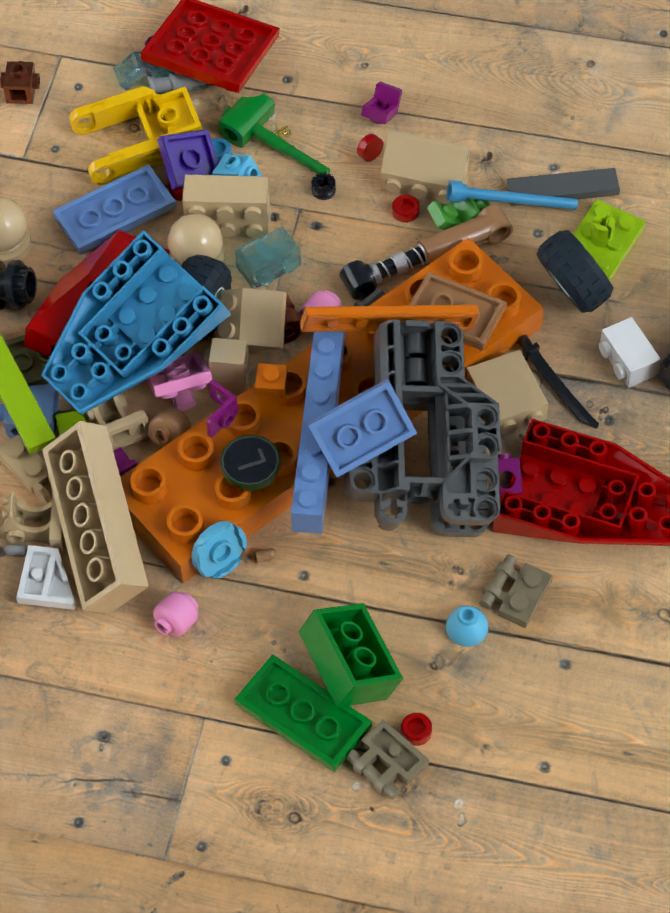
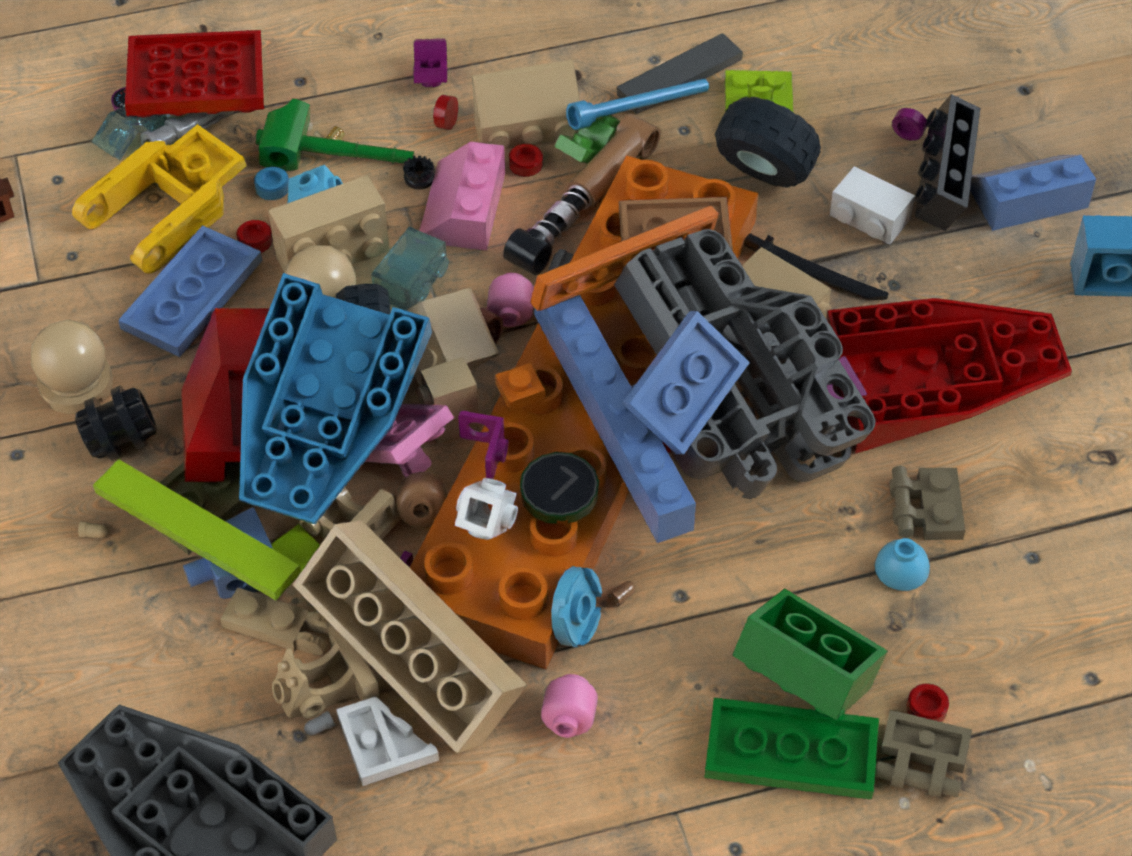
camera: 30 degrees left, 5 degrees down
(186, 455) = (474, 510): none -> white brick
(187, 155) = (246, 198): dark purple tile -> none
(342, 220) = (465, 196): none -> bright pink slope

